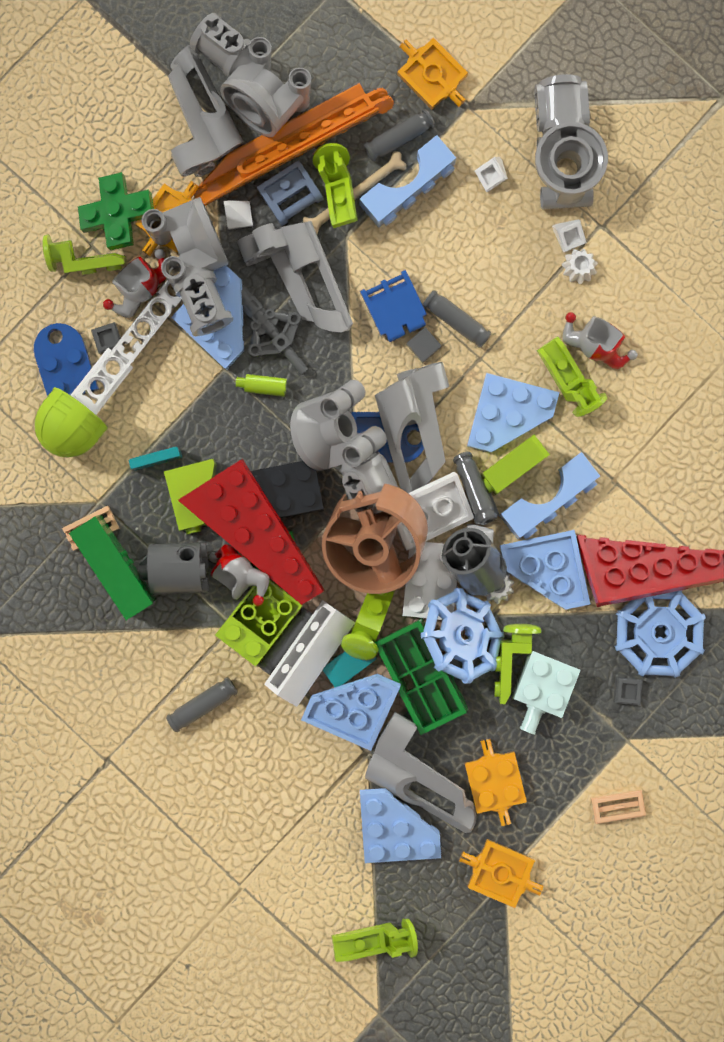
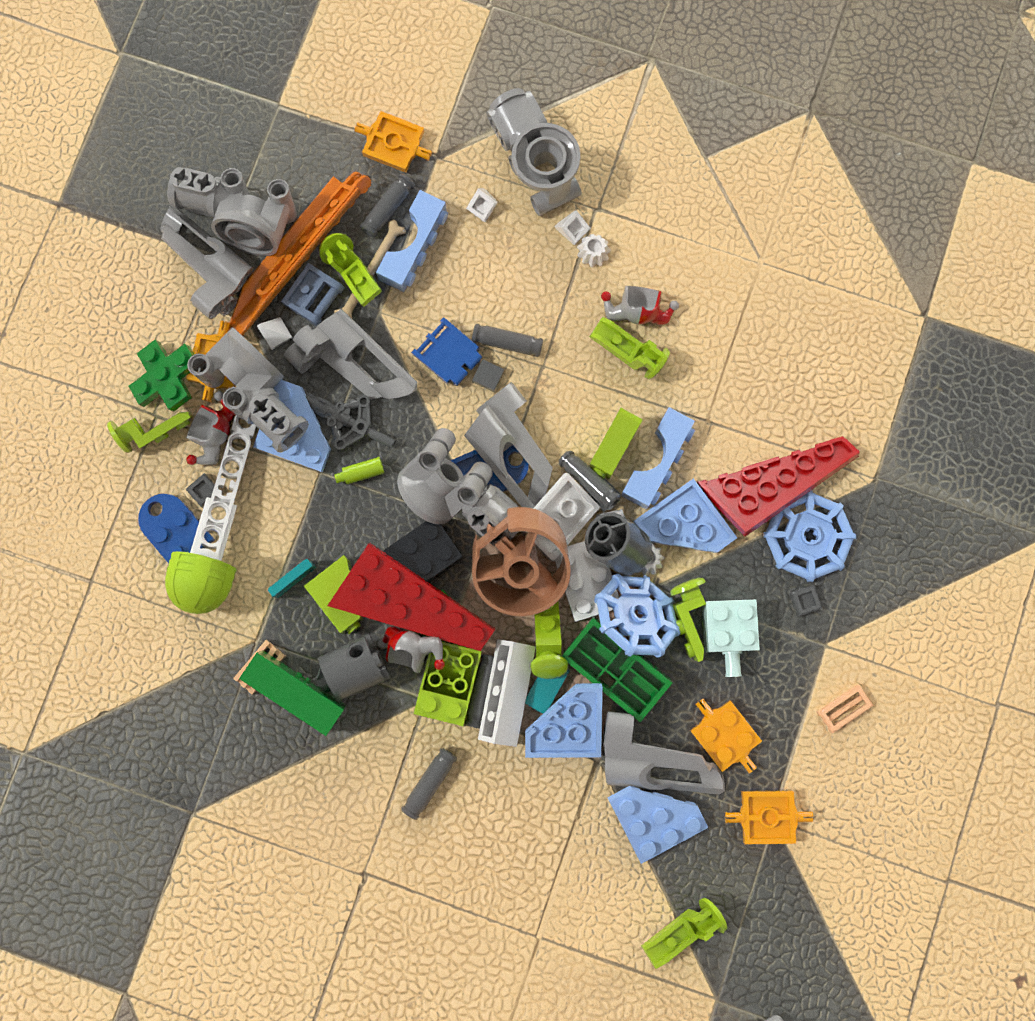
camera: 20 degrees left, 5 degrees down
(508, 411) = (588, 401): light blue plate -> none

